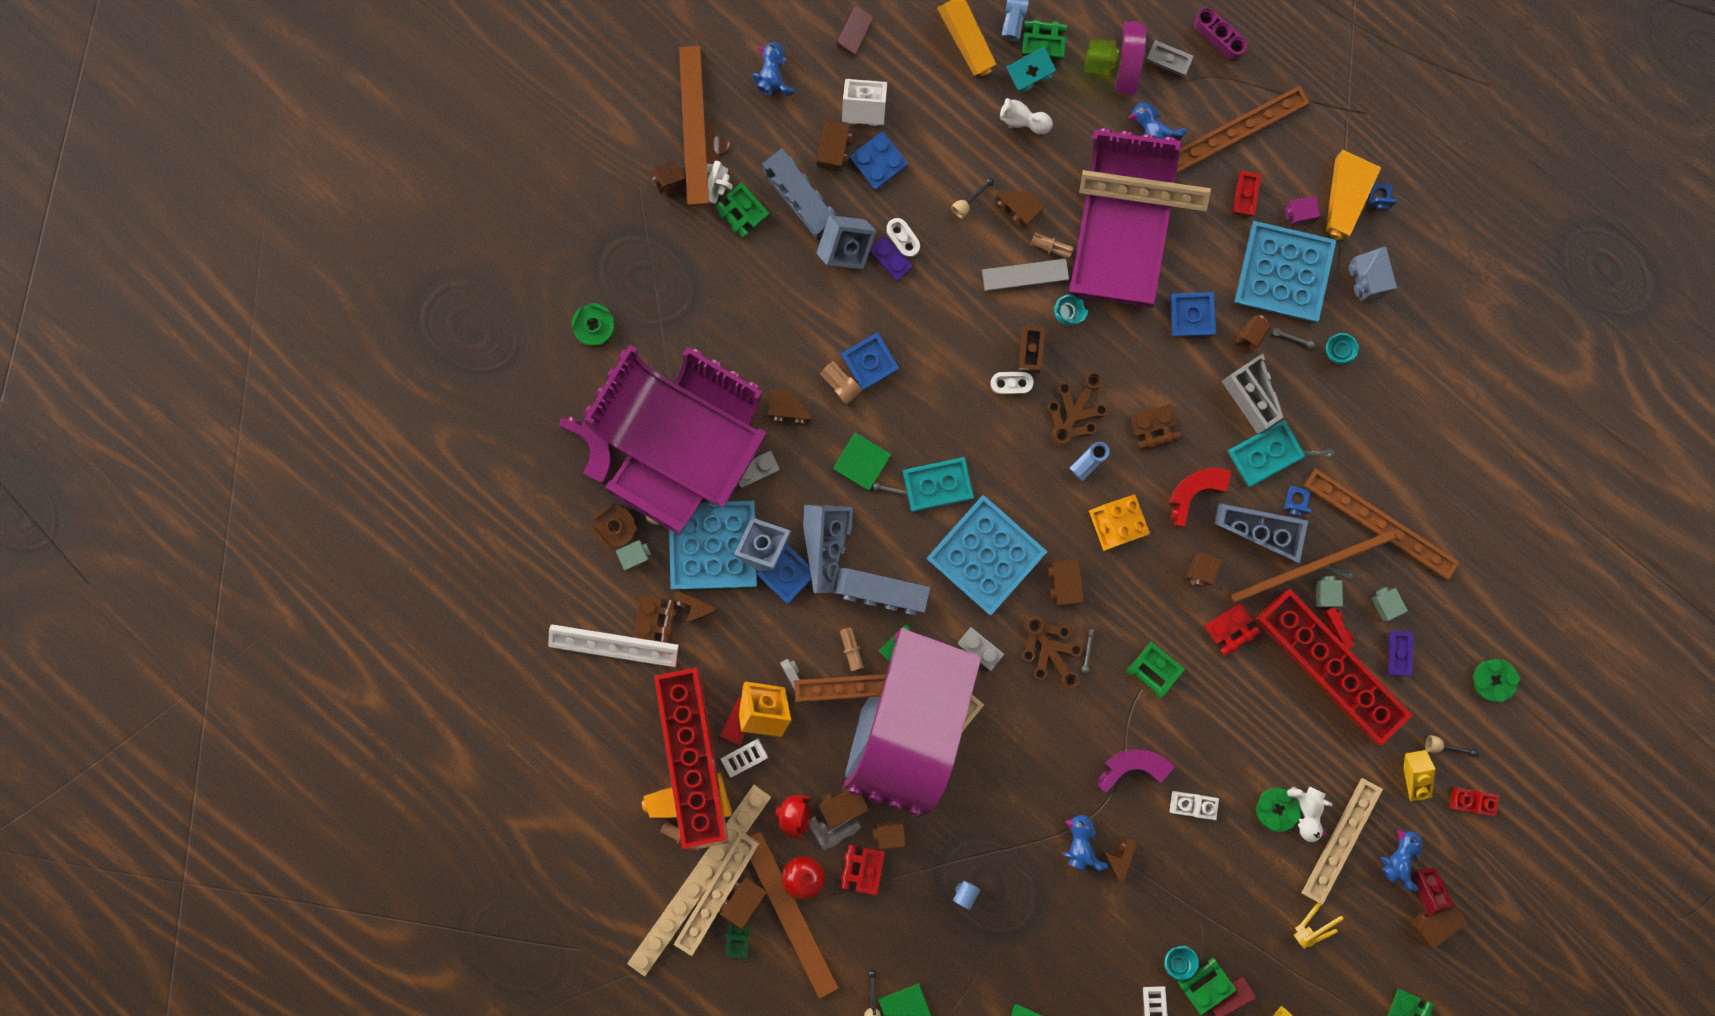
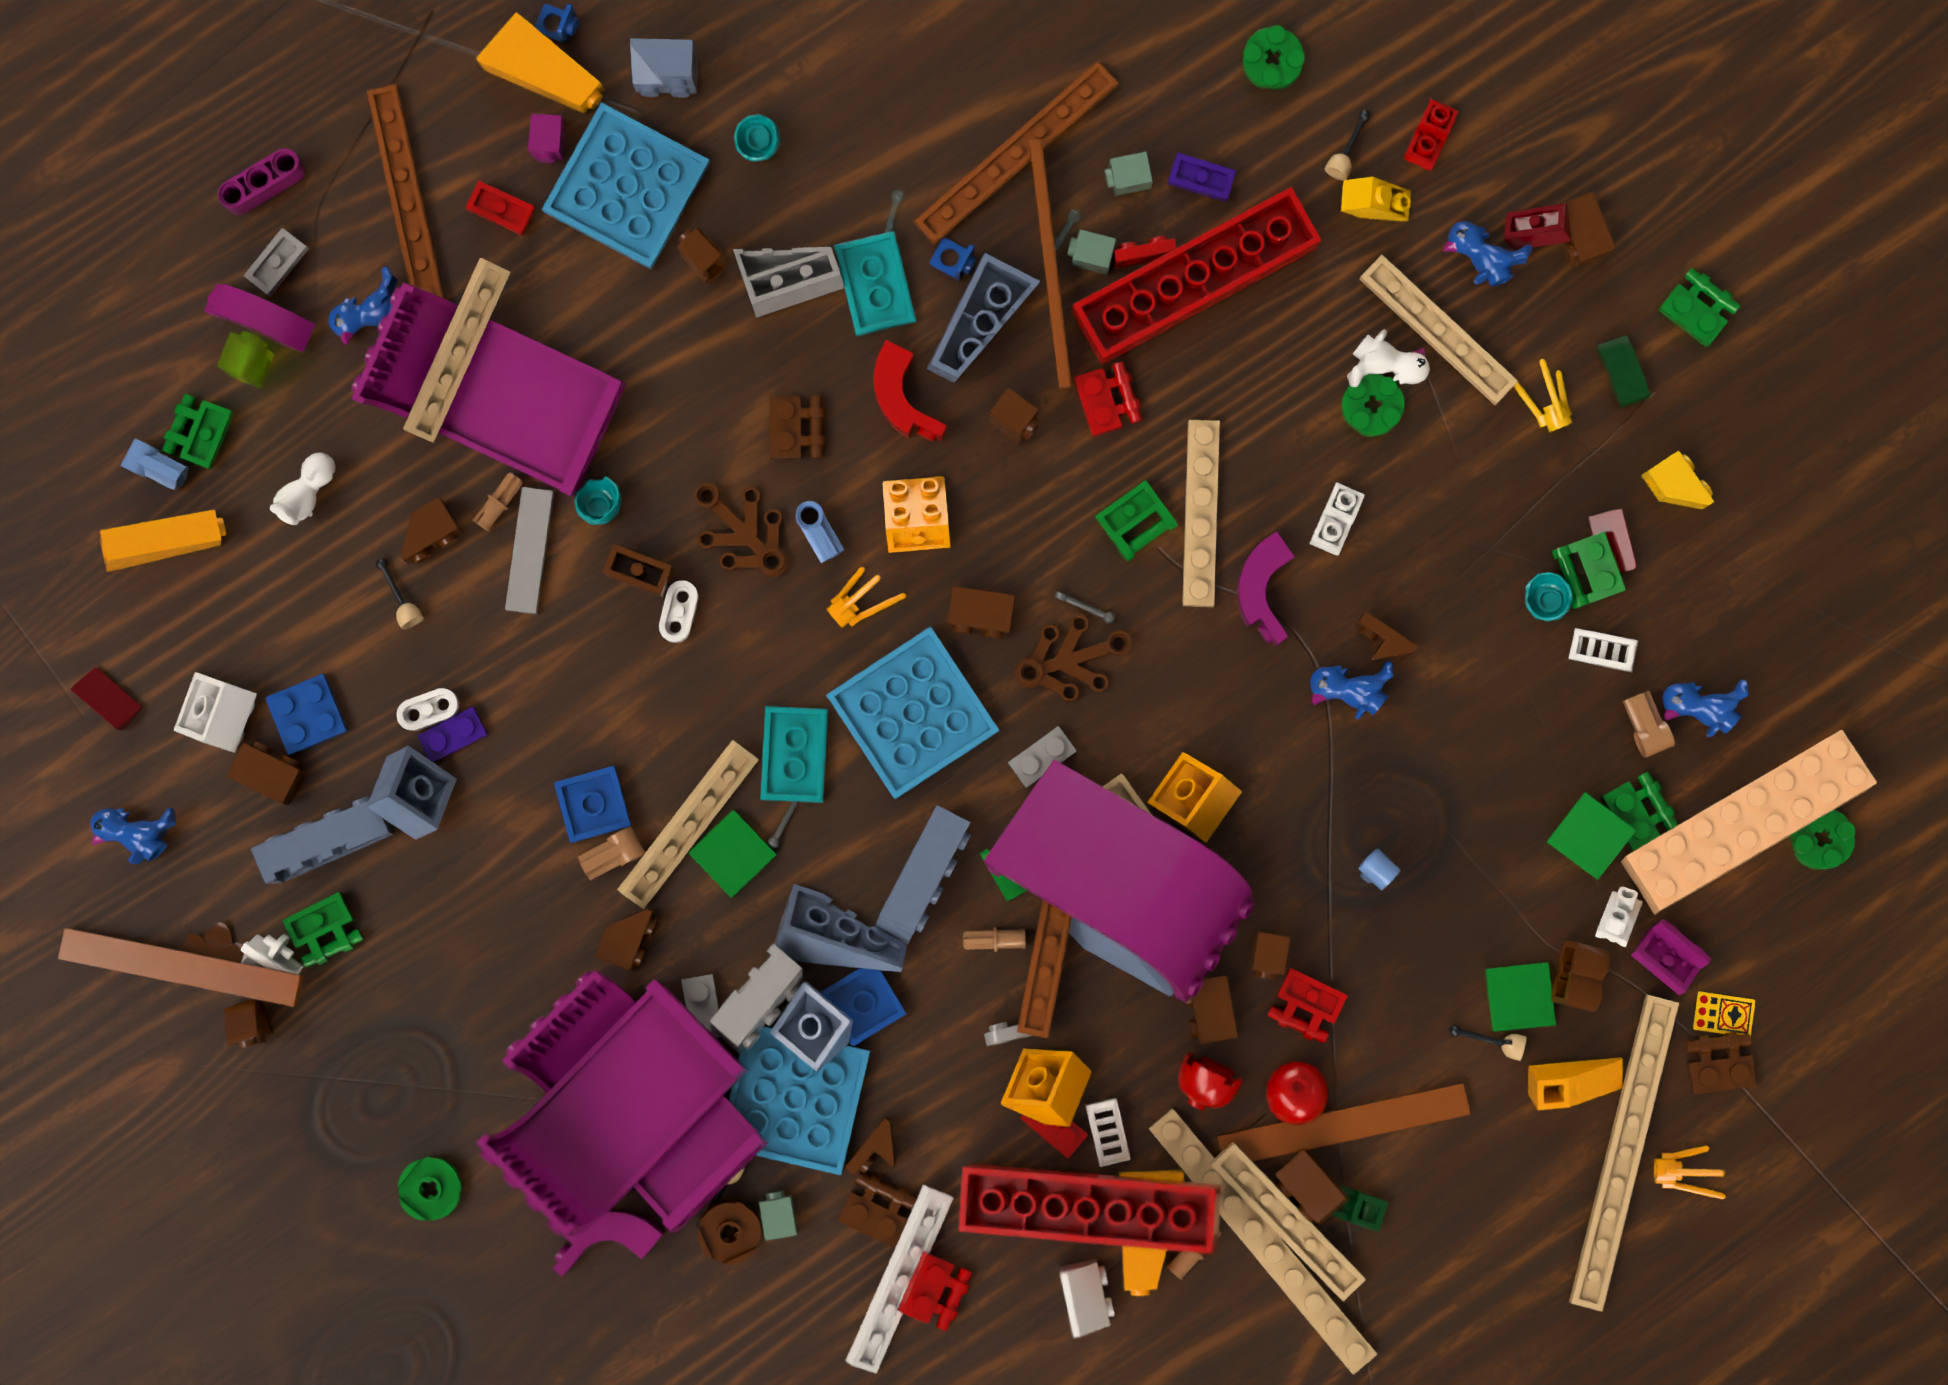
camera: 75 degrees left, 0 degrees up
(614, 665) = (926, 1289): none -> red plate
(632, 771) = (1085, 1297): none -> white slope
(770, 504) = (758, 1000): none -> light grey wedge
(832, 837) = (1251, 1036): clear bracket -> none
(873, 427) = (687, 824): none -> tan plate
(981, 757) = (1194, 796): none -> light orange slope
(1019, 68) = (223, 450): teal brick -> none
(1043, 491) = (844, 609): none -> light orange plant
(1172, 712) = (1200, 513): none -> tan plate
(1192, 314) = (651, 331): blue plate -> none
(1277, 332) = (708, 220): dark grey hinge -> none
(1349, 976) = (1624, 371): none -> dark green slope

